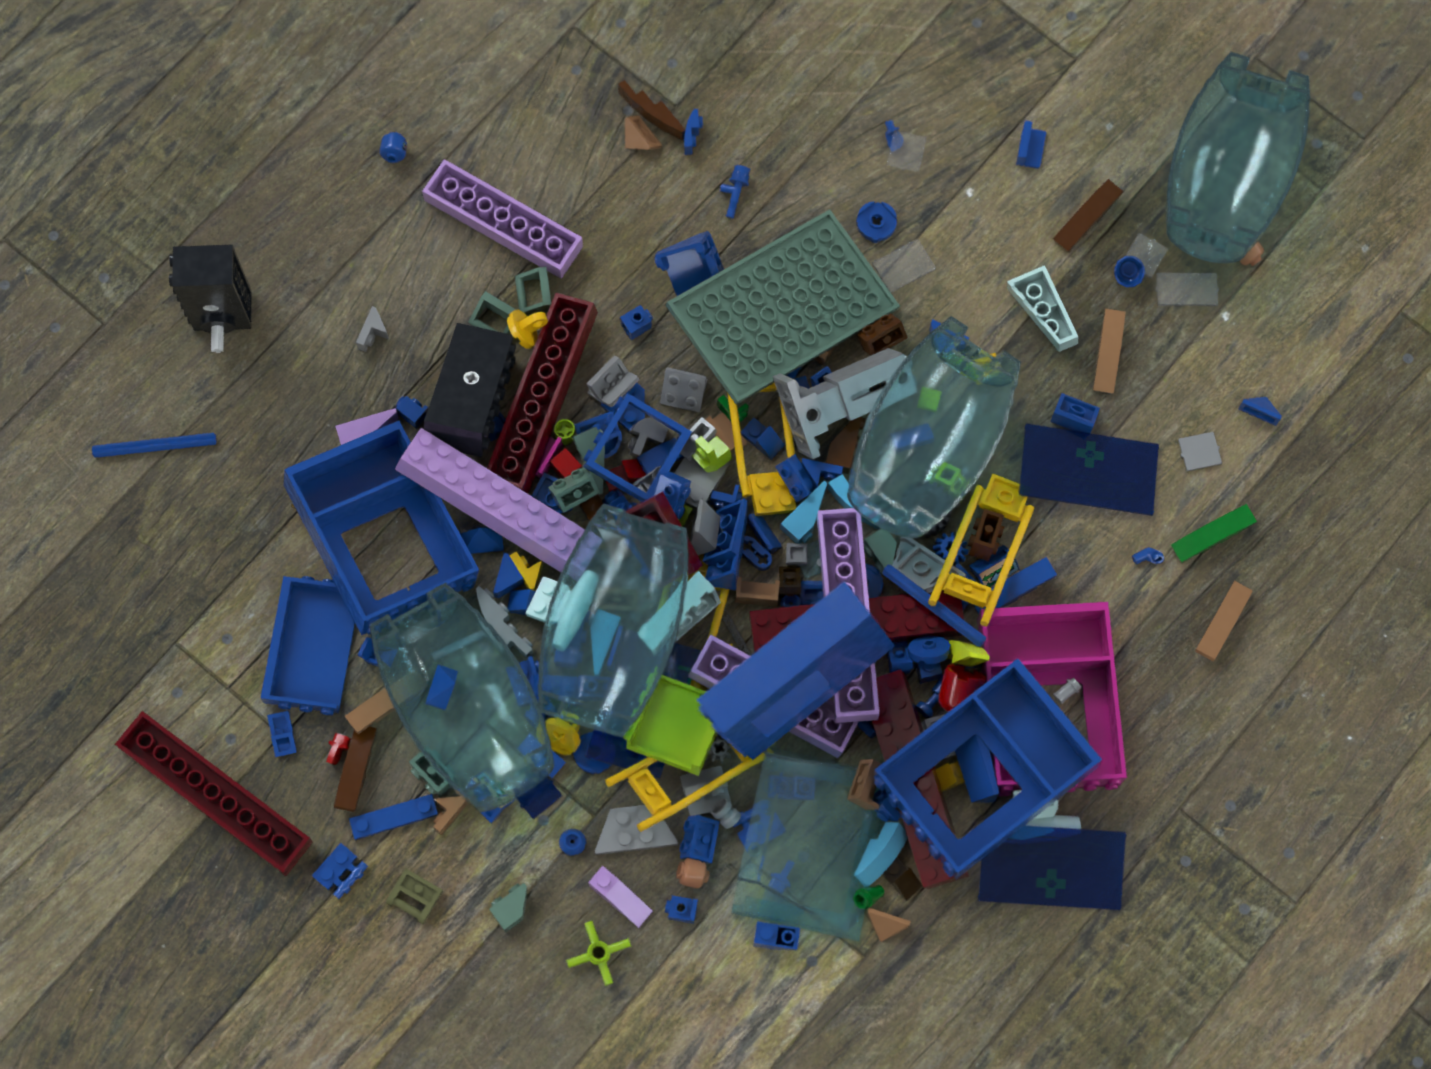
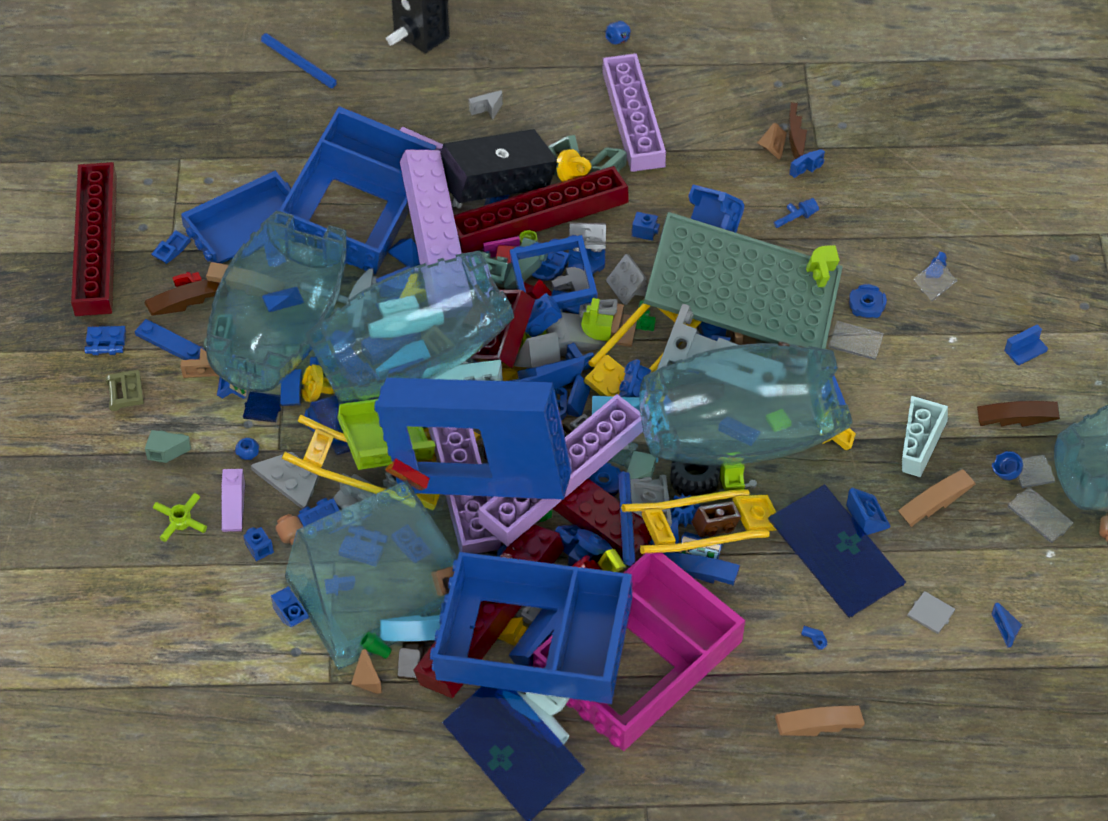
camera: 50 degrees right, 20 degrees down
(762, 747) = (407, 473): none -> red slope
(763, 438) = (644, 349): blue slope -> none
(816, 226) = (821, 262): none -> lime brick
(1067, 690) = (648, 640): light grey pin -> none
(1214, 533) = (878, 662): green slope -> none

